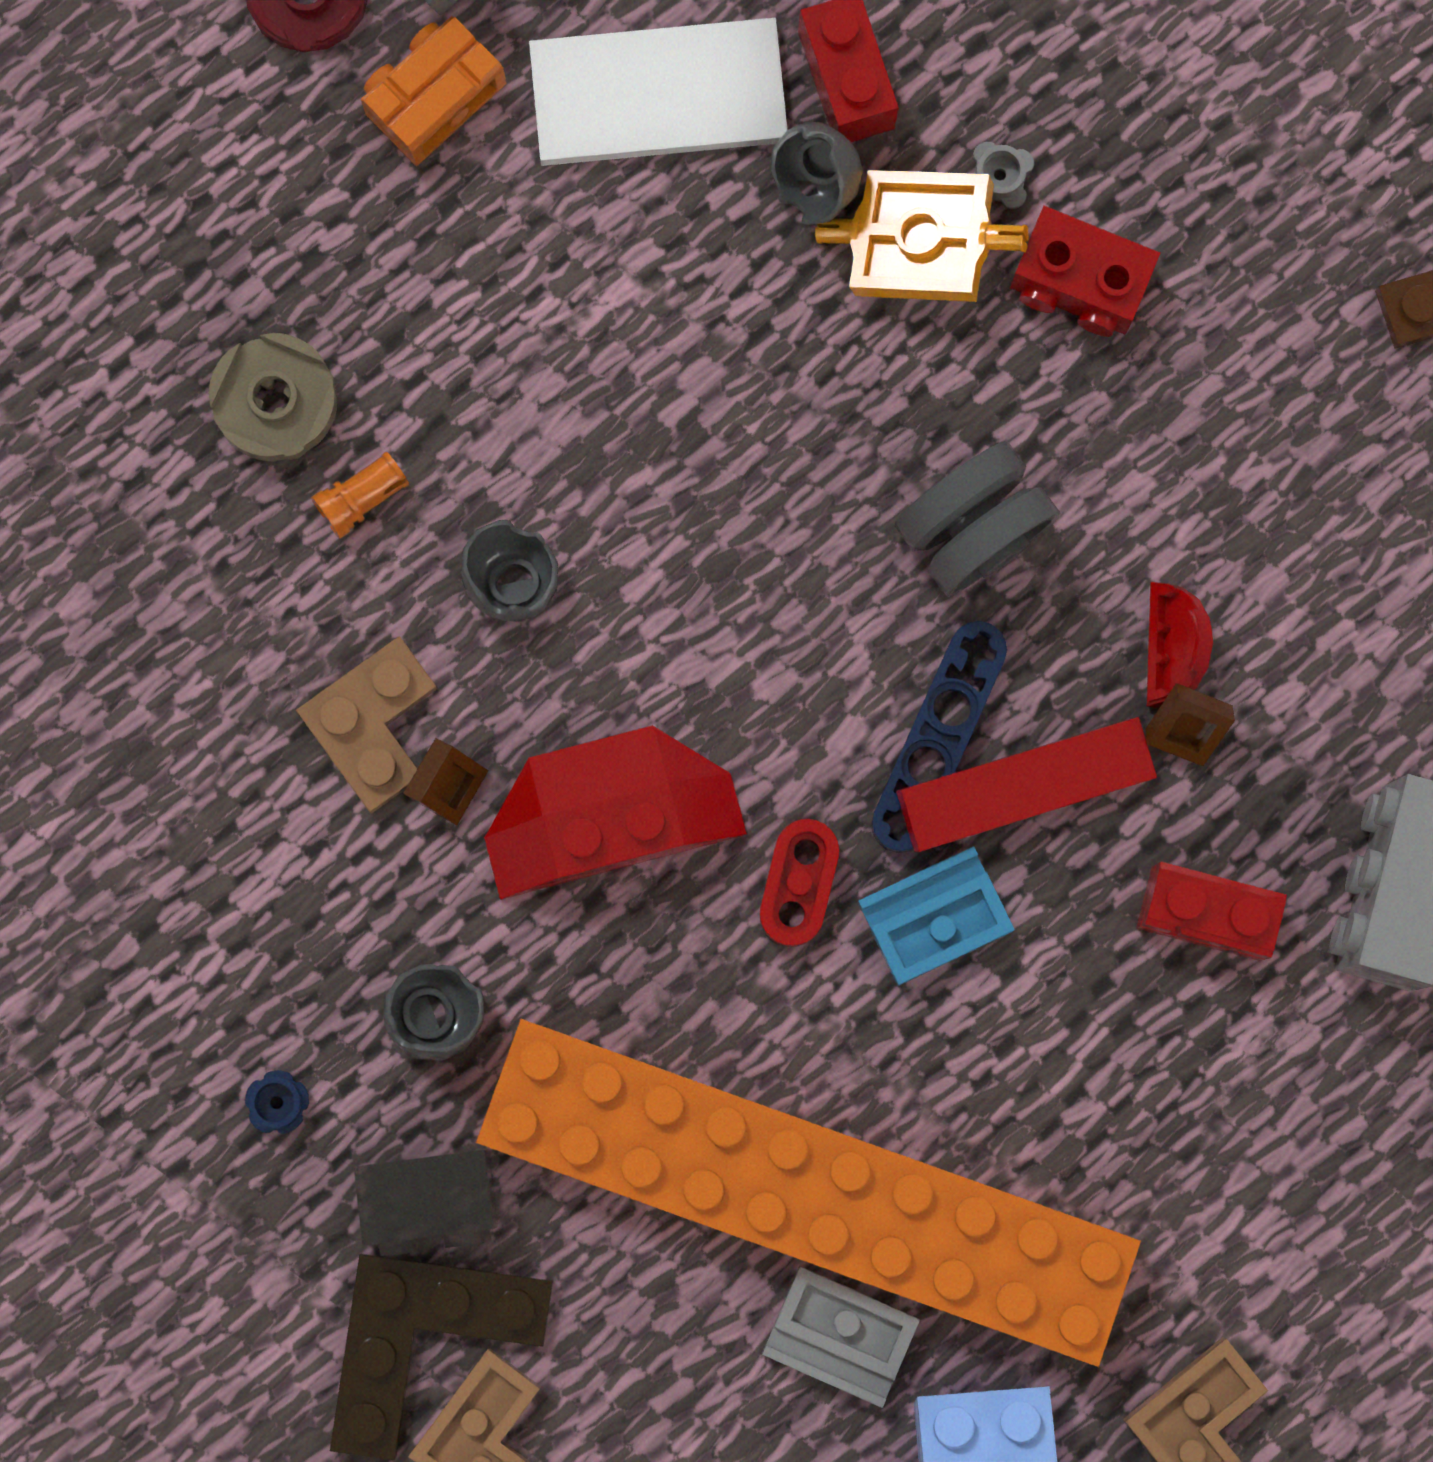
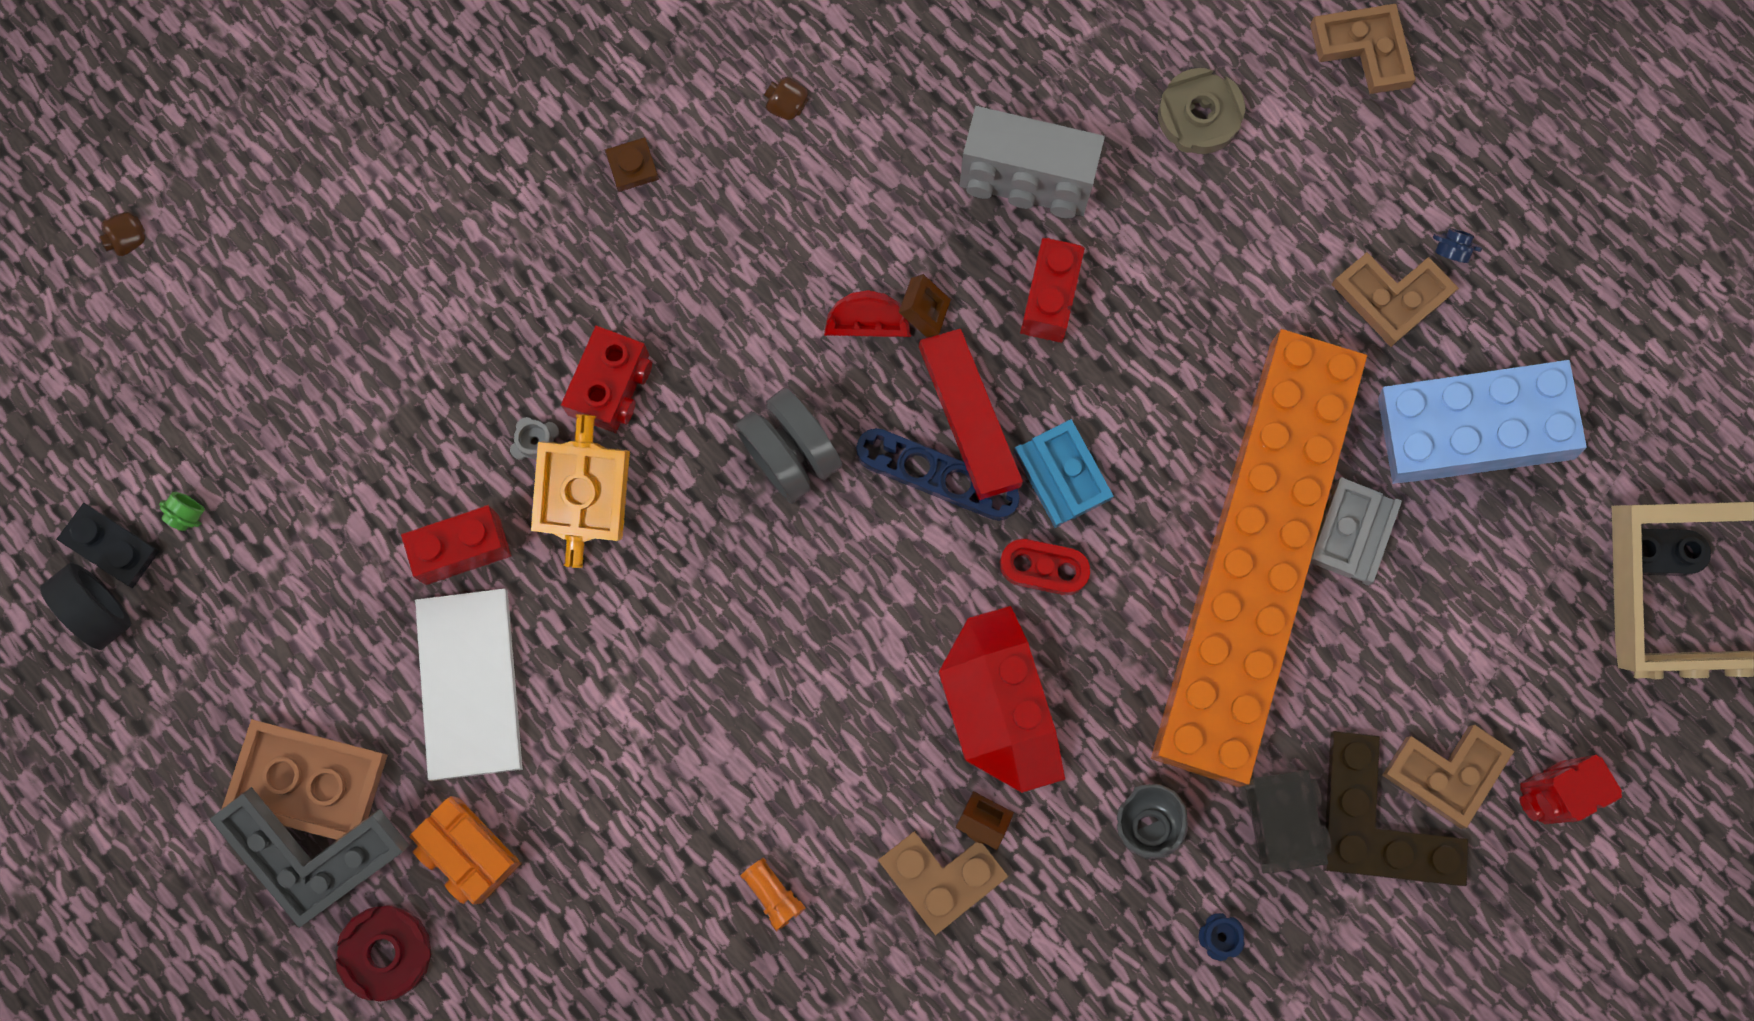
camera: 90 degrees left, 5 degrees down
(258, 365) = (675, 975): dark tan plate -> none
(503, 547) = (847, 772): dark grey hair -> none
(822, 157) = (525, 558): dark grey hair -> none

